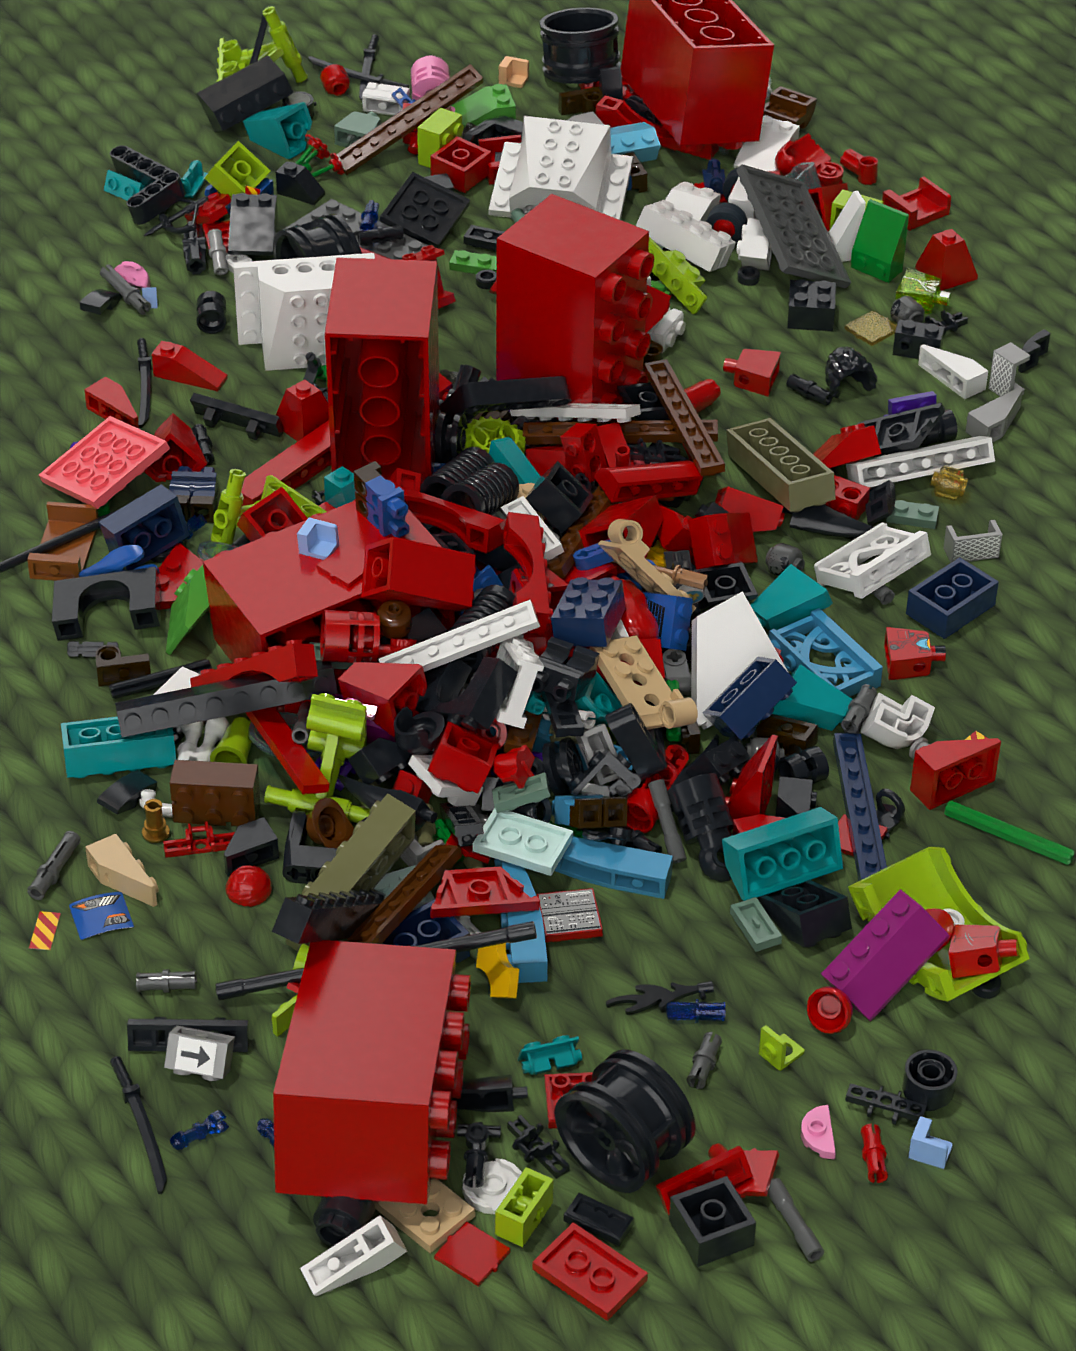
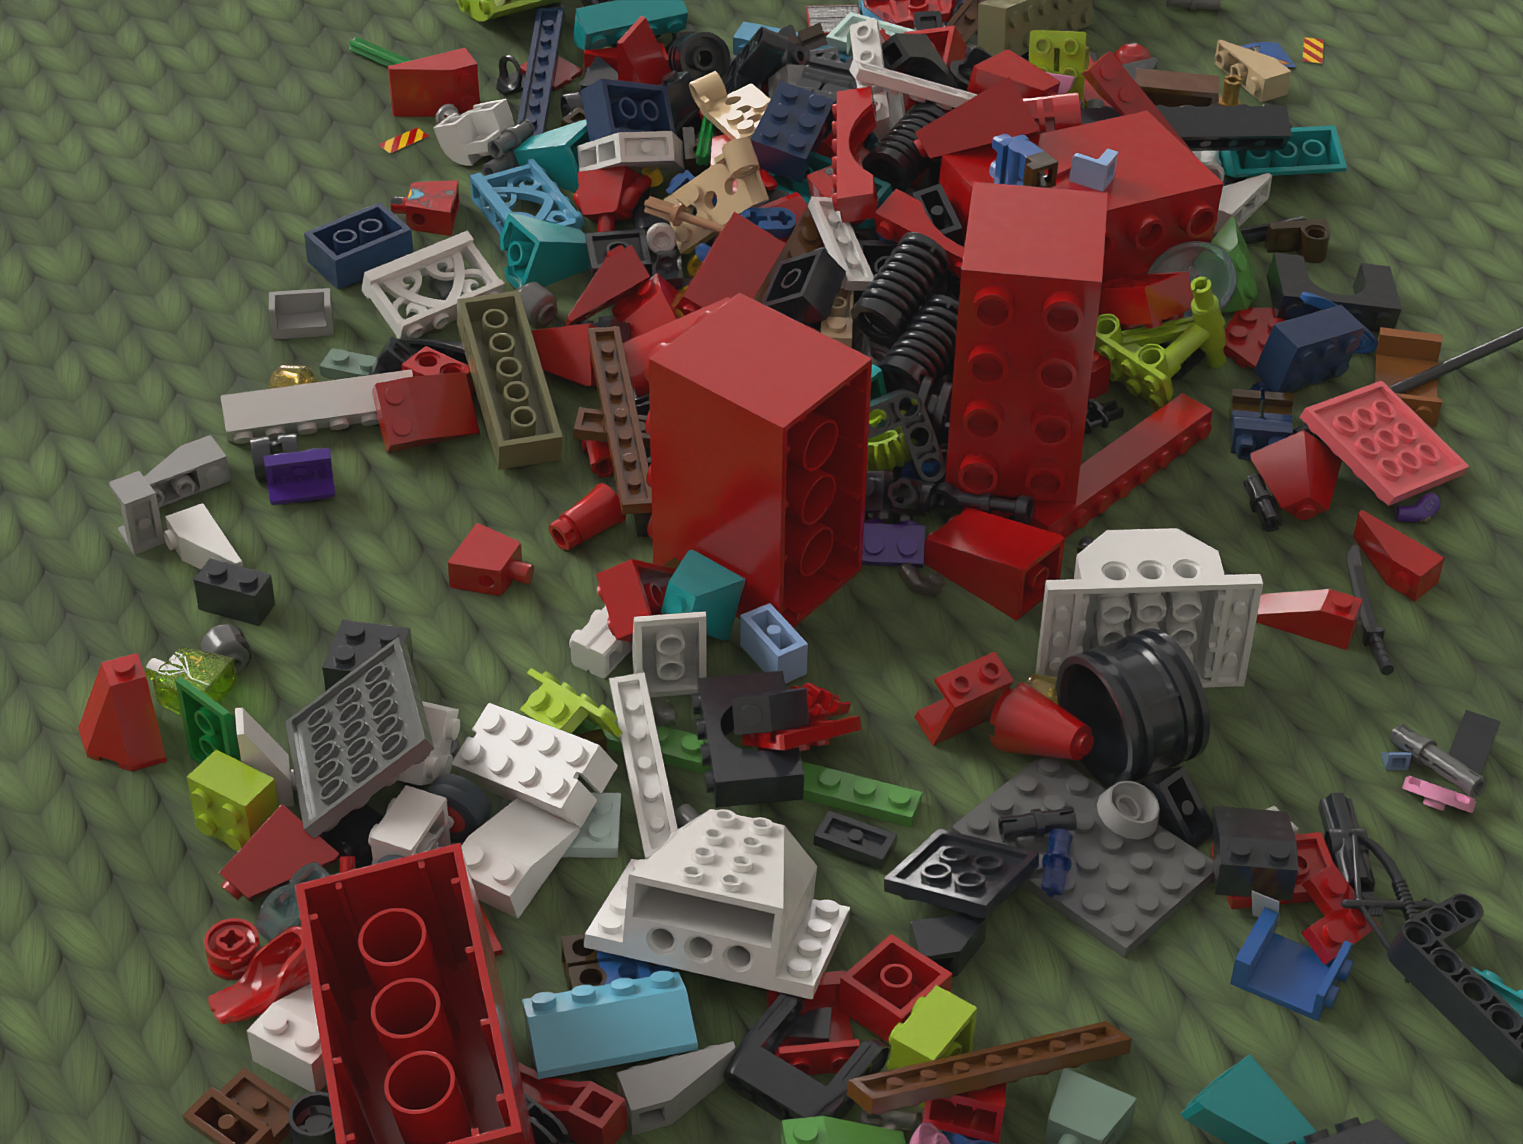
camera: 175 degrees left, 0 degrees up
(49, 872) = (1321, 77): dark grey pin -> none
(87, 648) = (1333, 267): black axle -> none
(193, 178) = (1387, 1009): teal hinge -> none
(211, 312) = (1291, 700): black wheel -> none
(217, 252) = (1304, 816): light grey pin -> none
(236, 171) = (1299, 950): lime brick -> none
(251, 419) = (1225, 532): black hinge -> none
(298, 183) = (1189, 981): black slope -> none
(302, 410) = (1127, 498): red slope -> none
(320, 150) = (1174, 1012): plant -> none
(486, 279) = (862, 764): black tile -> none
(809, 389) = (420, 538): black pin -> none
(845, 363) = (359, 537): black hair -> none
(864, 166) = (164, 967): red piece -> none
(871, 328) = (286, 646): clear yellow piece -> none
(905, 429) = (327, 425): black wing -> none
(922, 204) = (107, 875): red panel -> none
(952, 321) = (157, 645): black piece -> none
(1035, 347) = (68, 578): black slope -> none

